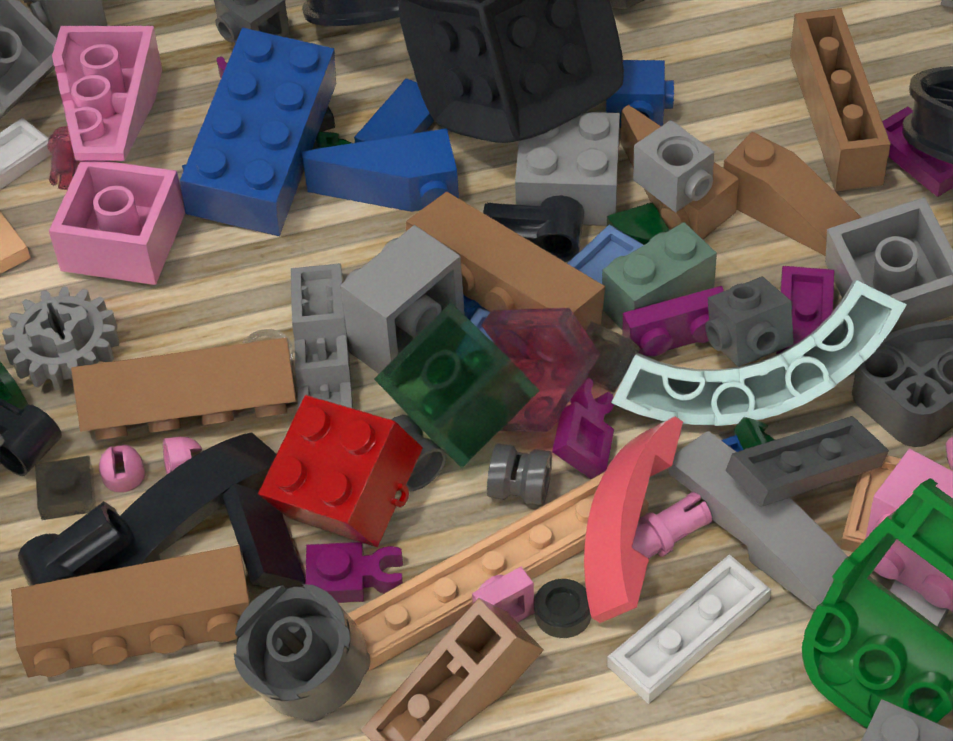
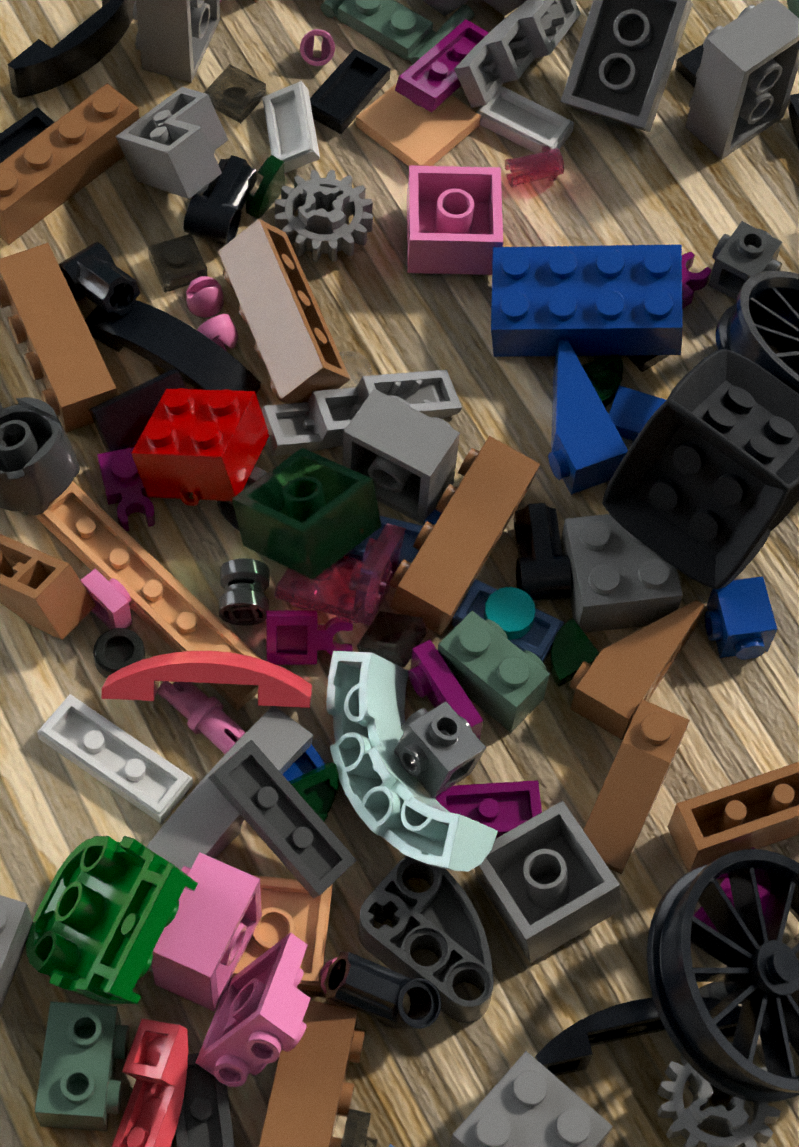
camera: 70 degrees right, 10 degrees up
(106, 86) = (608, 169): bright pink wedge -> none
(595, 252) = (511, 611): none -> teal tile
(673, 166) = (613, 630): light grey brick -> none

